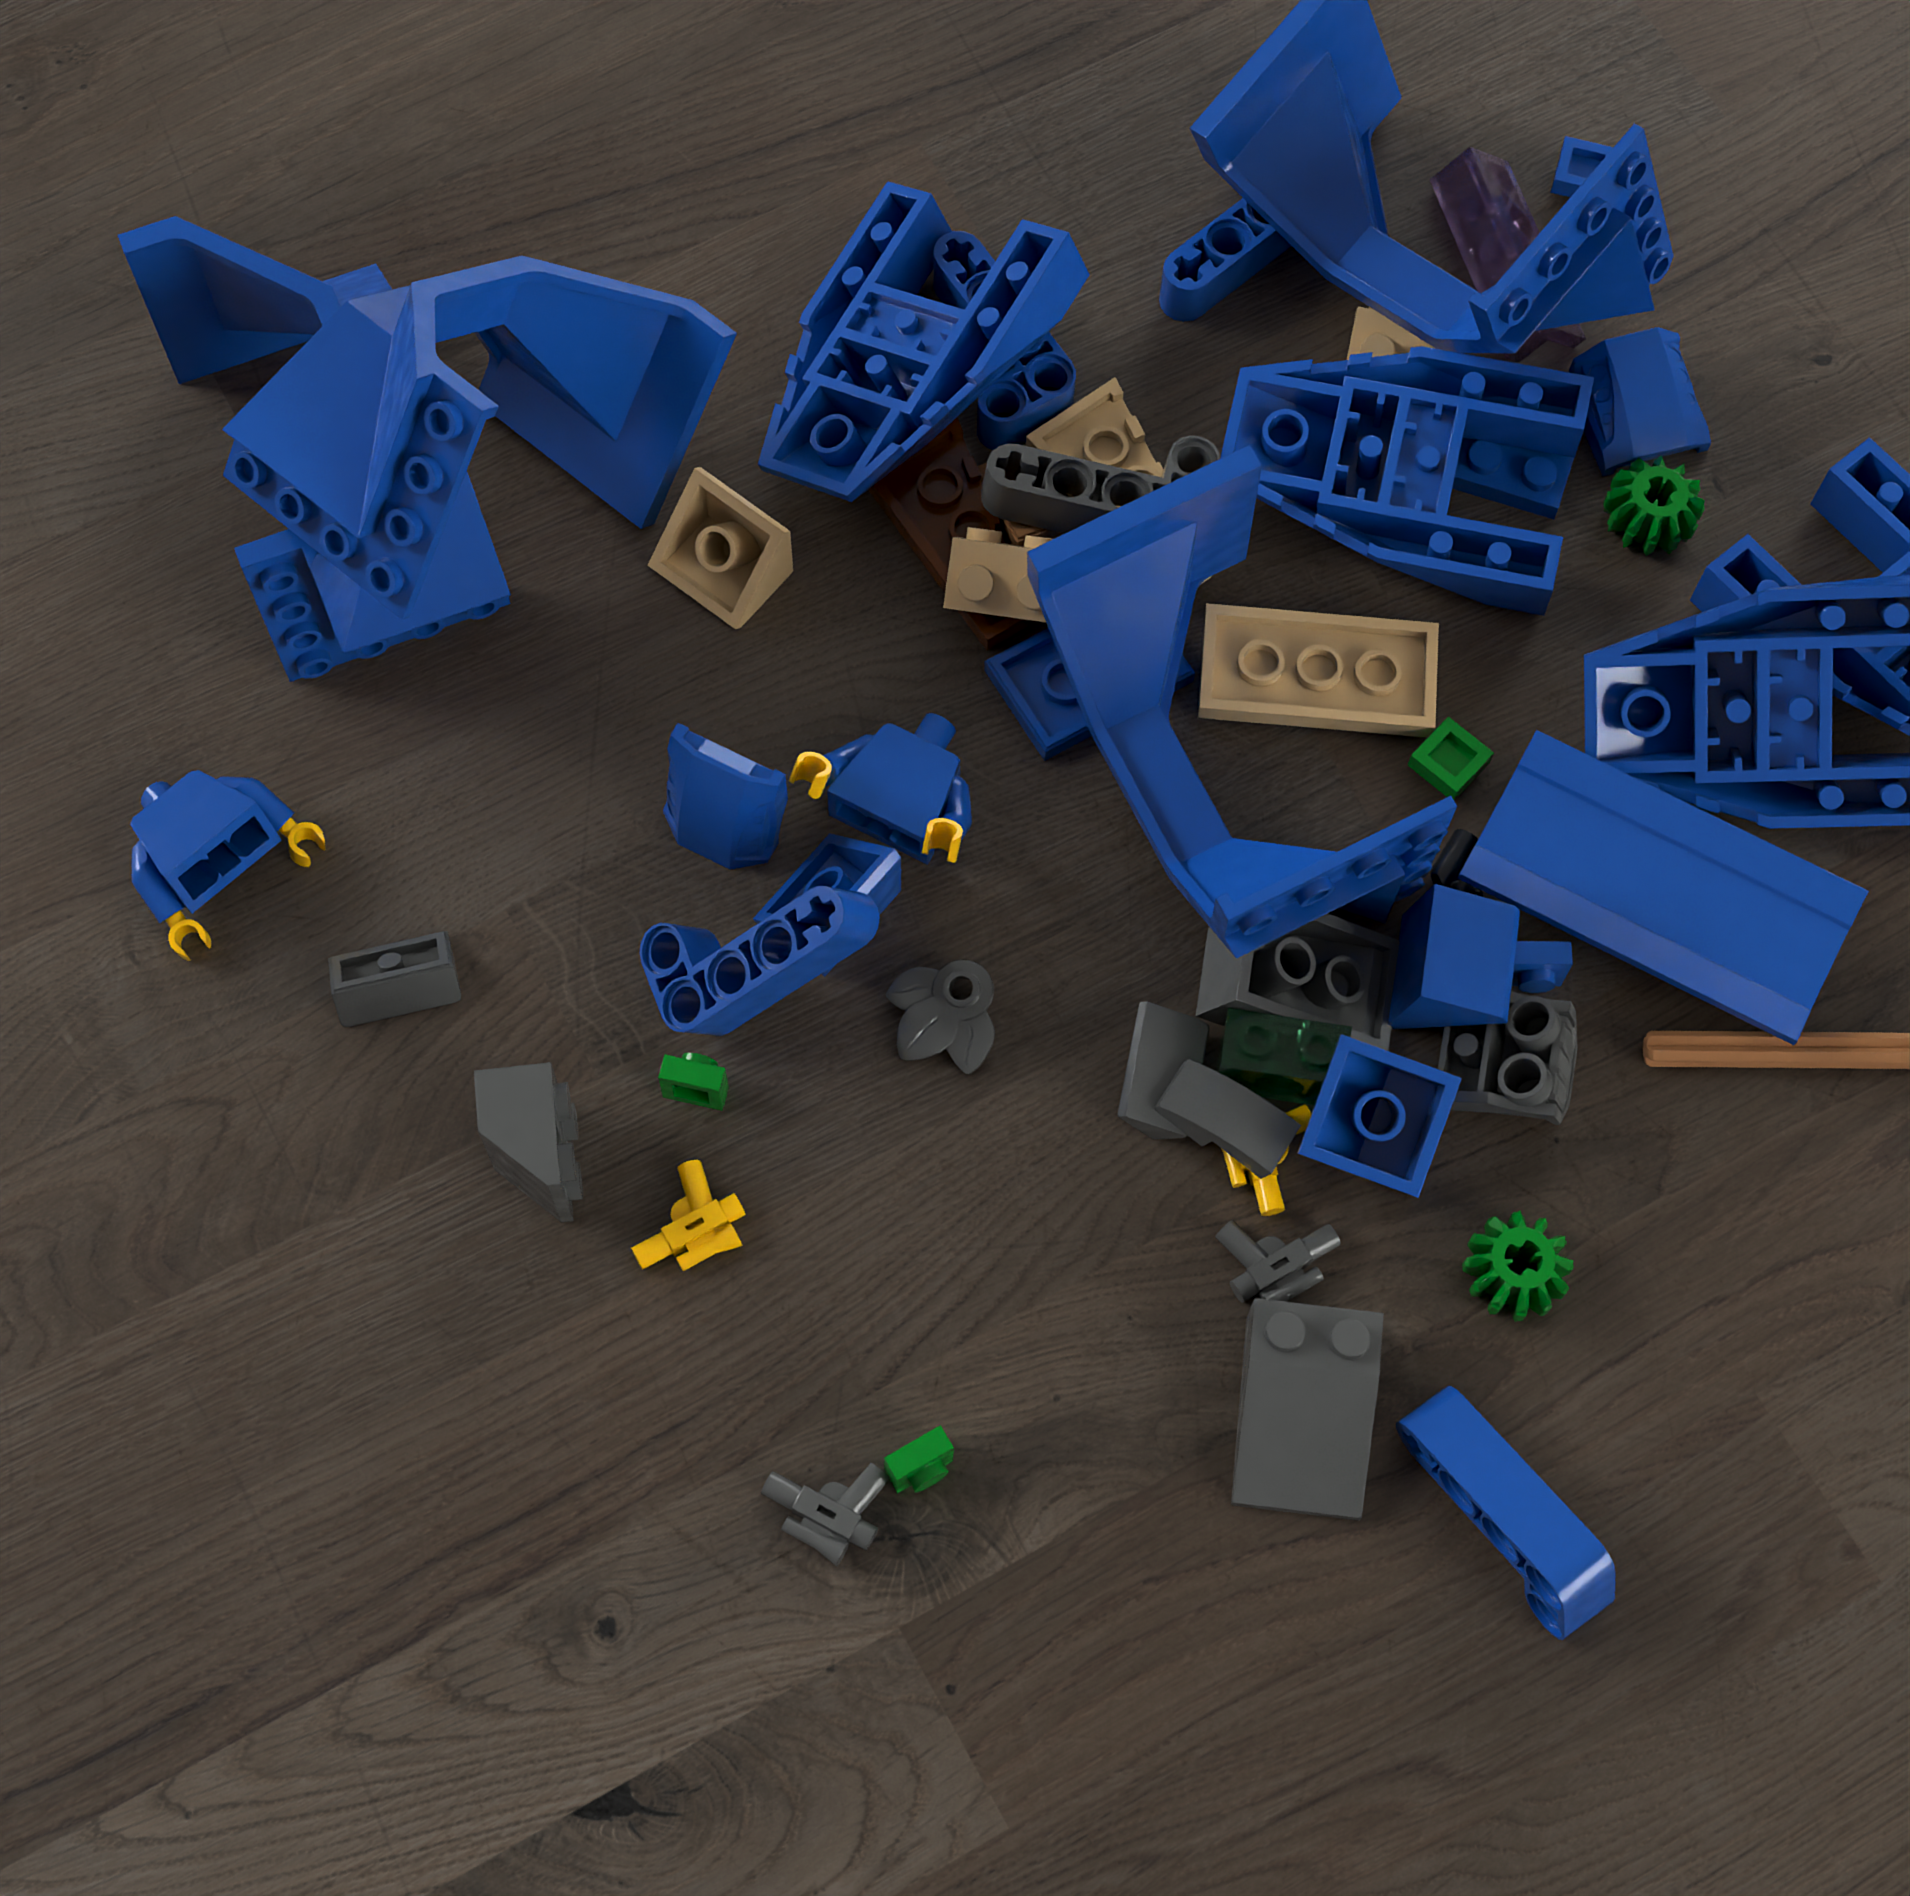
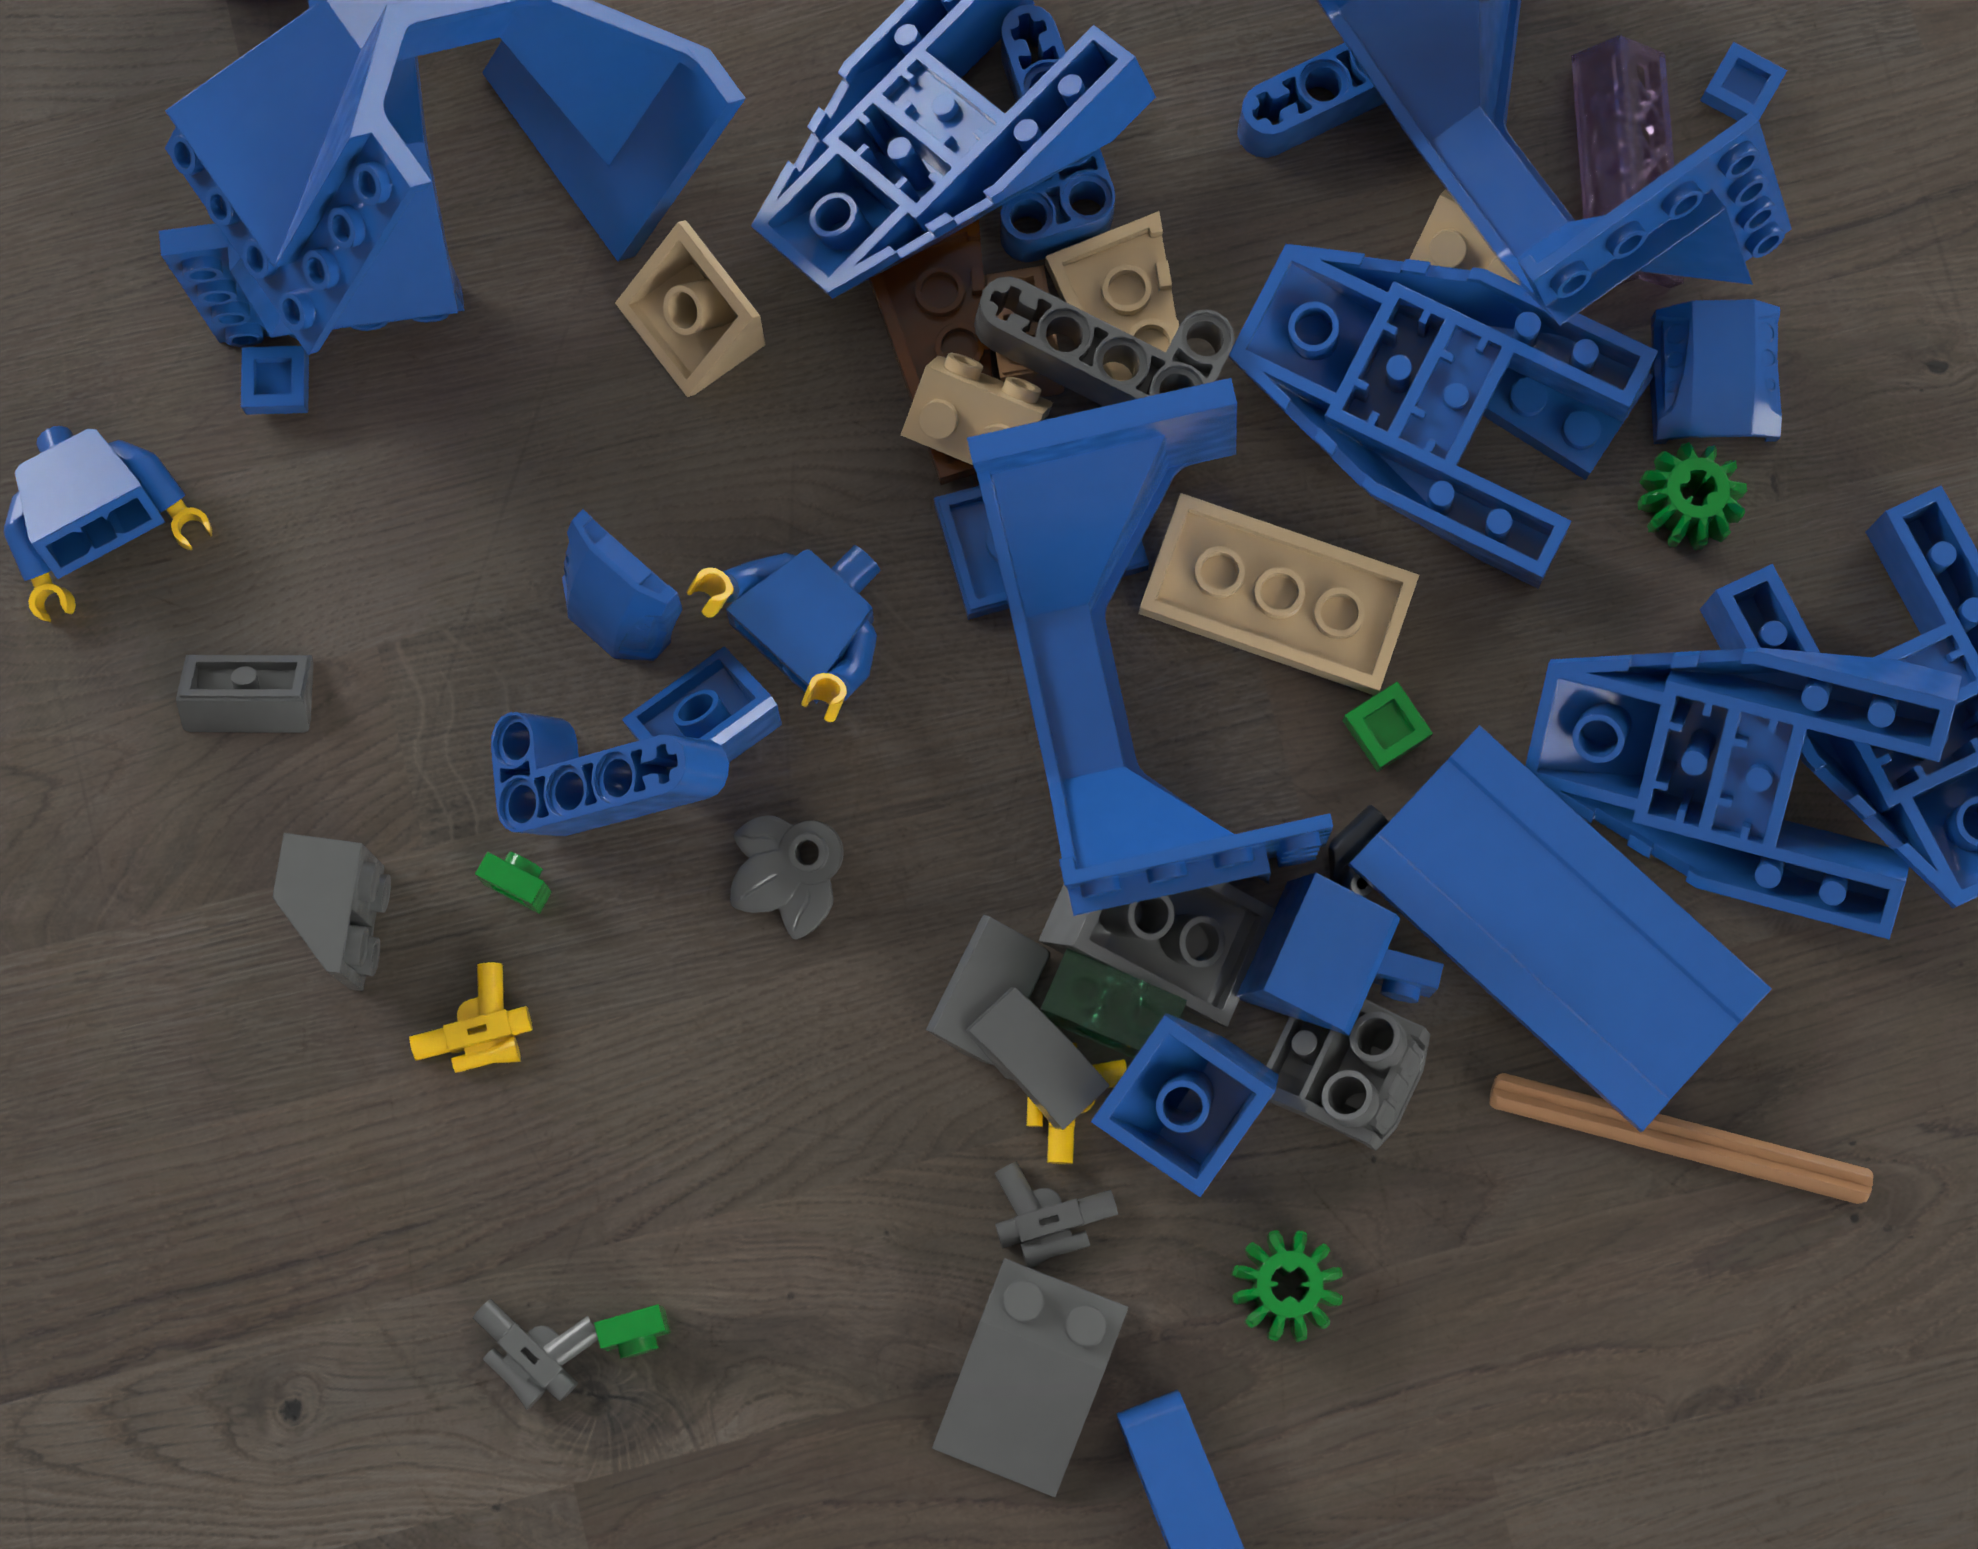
camera: 15 degrees right, 10 degrees up
(352, 697) = (274, 380): none -> blue plate

